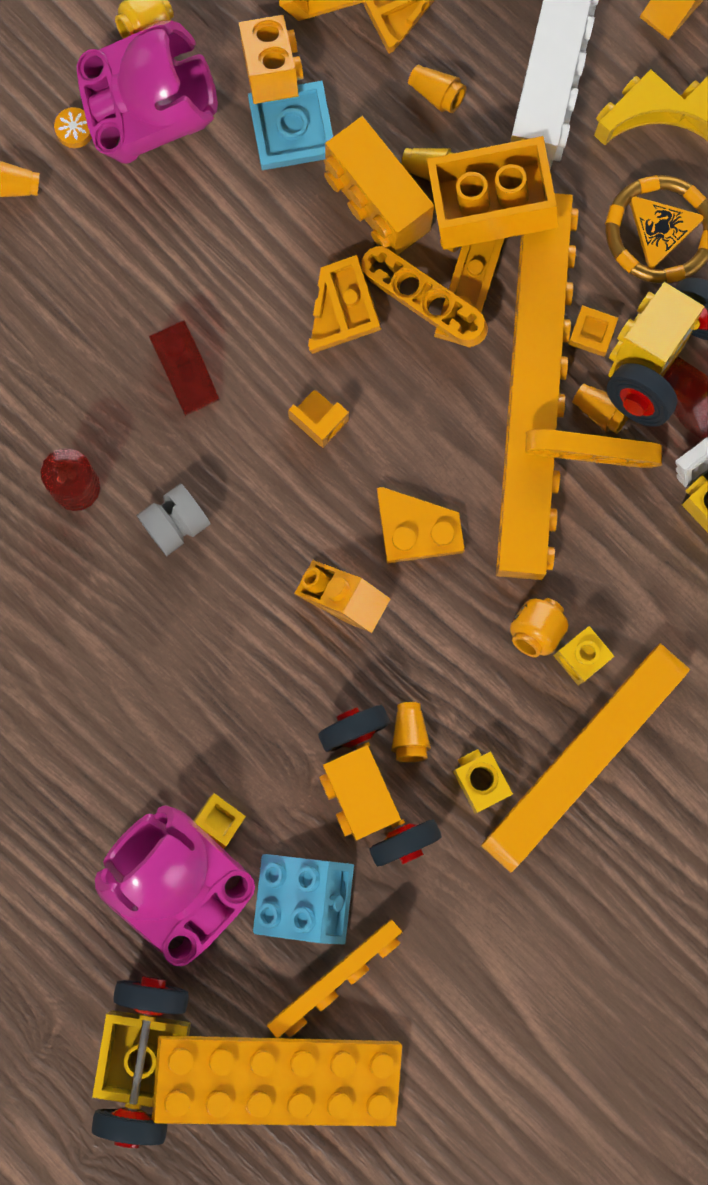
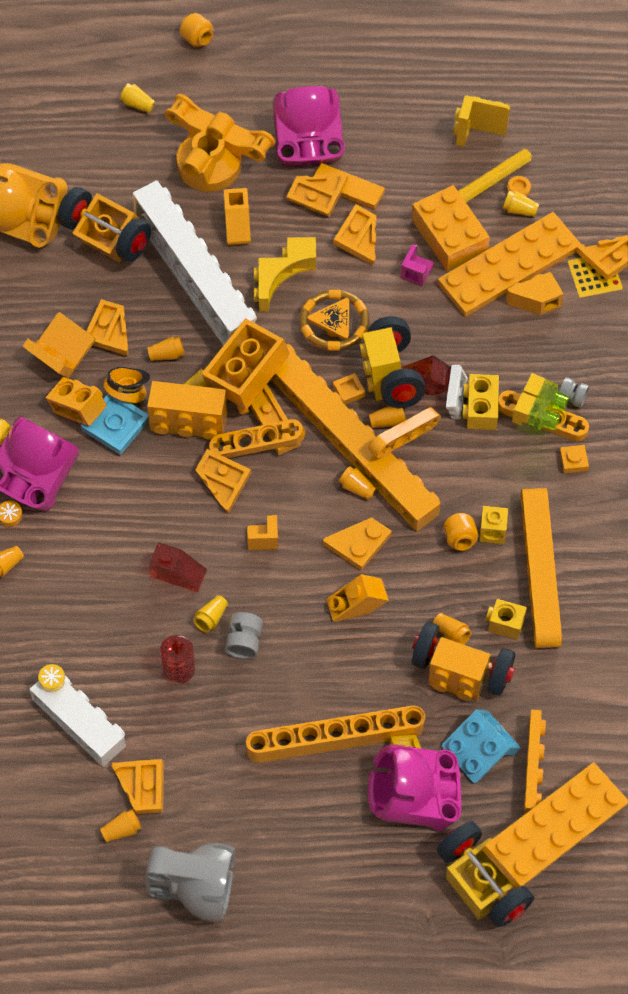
camera: 40 degrees left, 20 degrees down
(144, 716) = (325, 742): none -> light orange beam
(166, 457) = (210, 614): none -> yellow cone
(346, 89) = (127, 384): none -> light orange piece
(484, 455) = (357, 483): none -> light orange cone

